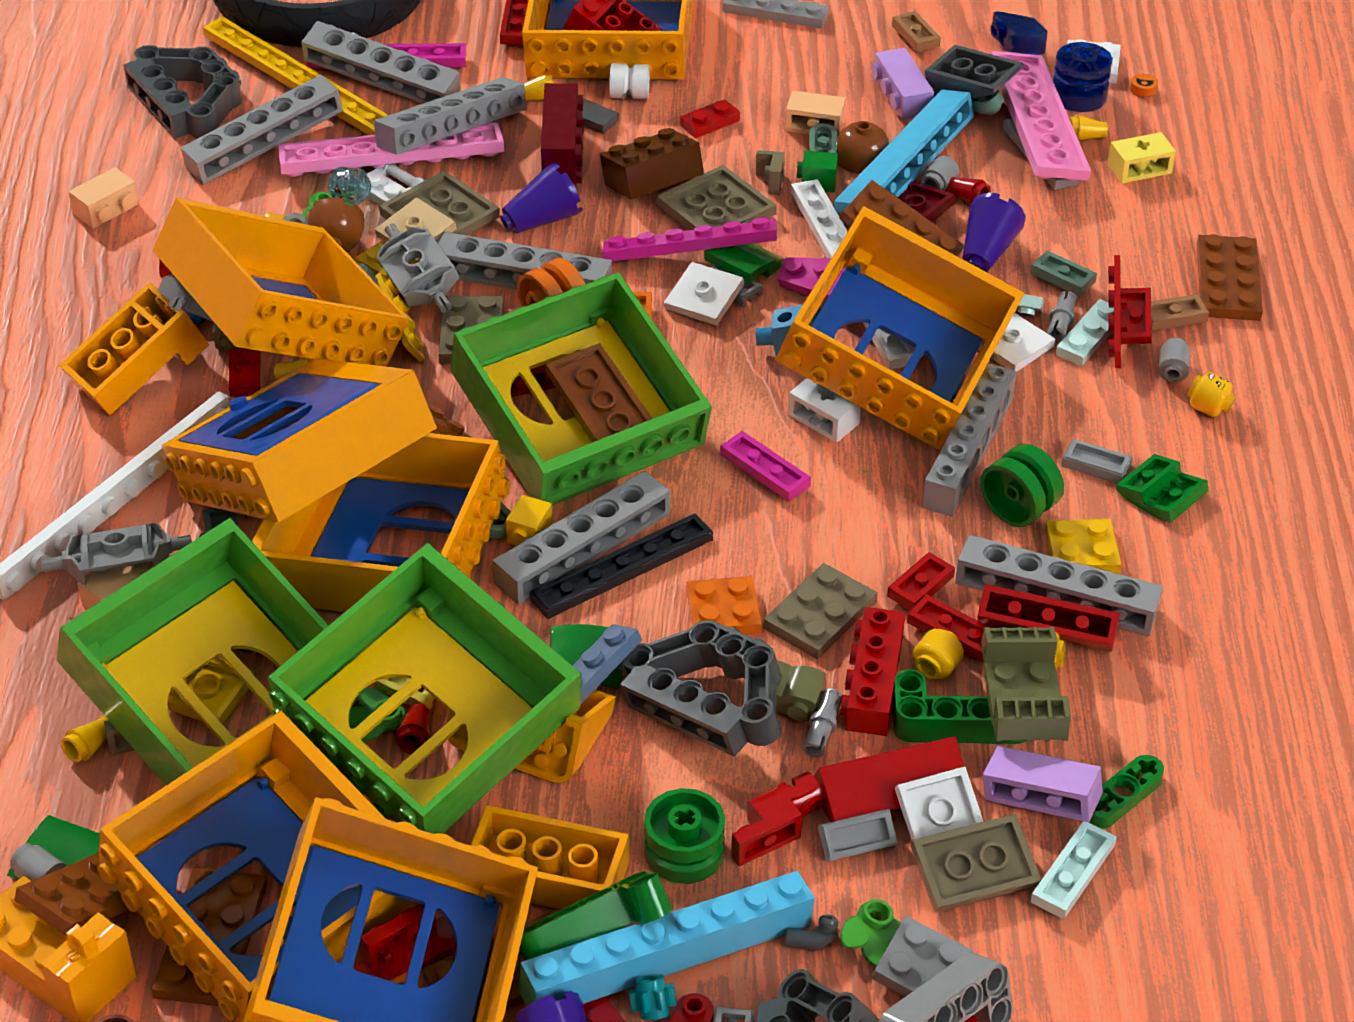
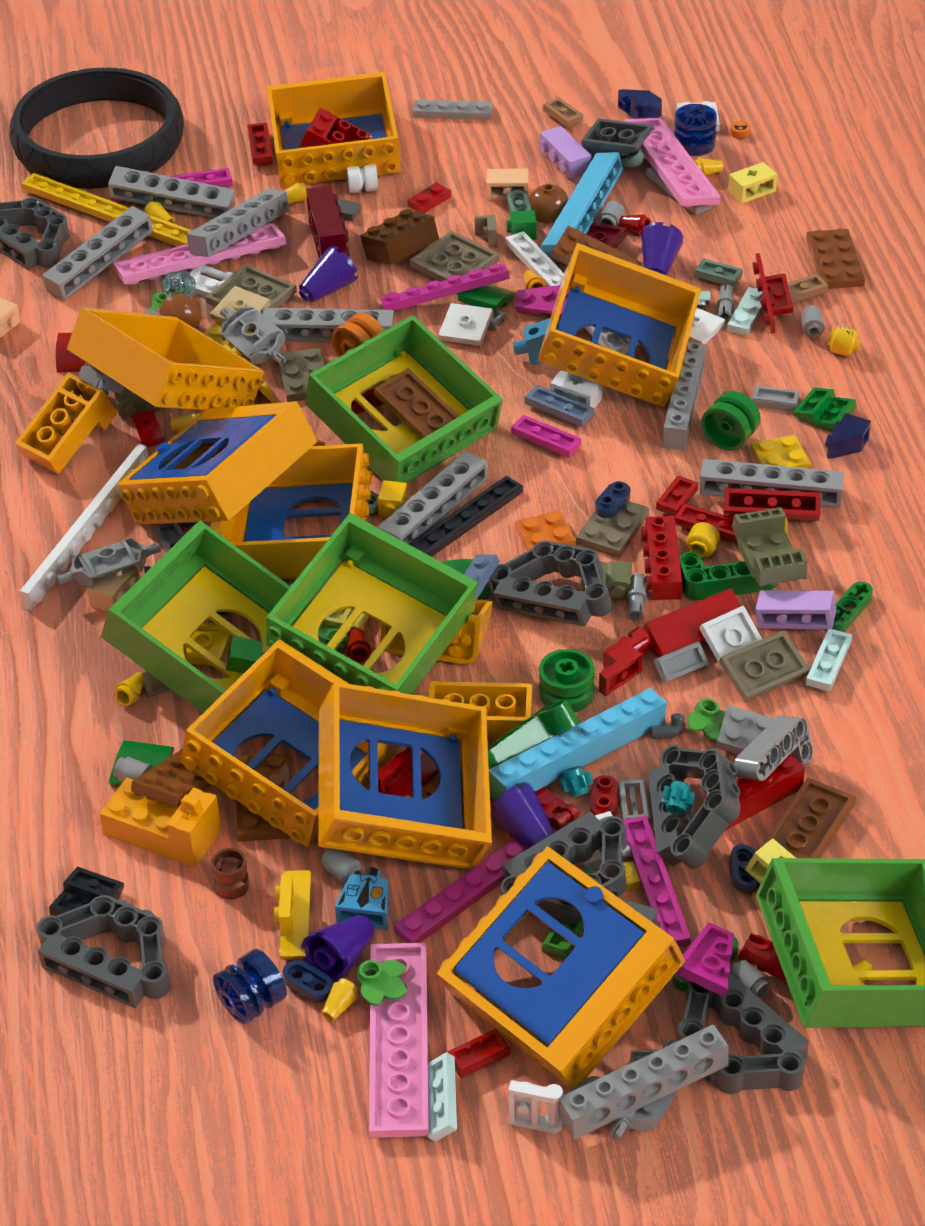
camera: 10 degrees left, 0 degrees up
(245, 714) = (243, 654): none -> green brick
(358, 86) = (157, 210): none -> yellow cone
(796, 425) = (559, 405): none -> sand blue plate
(811, 247) = (533, 280): none -> light orange cone
(832, 571) = (612, 499): none -> dark blue plate
(1184, 534) = (848, 436): none -> clear blue slope

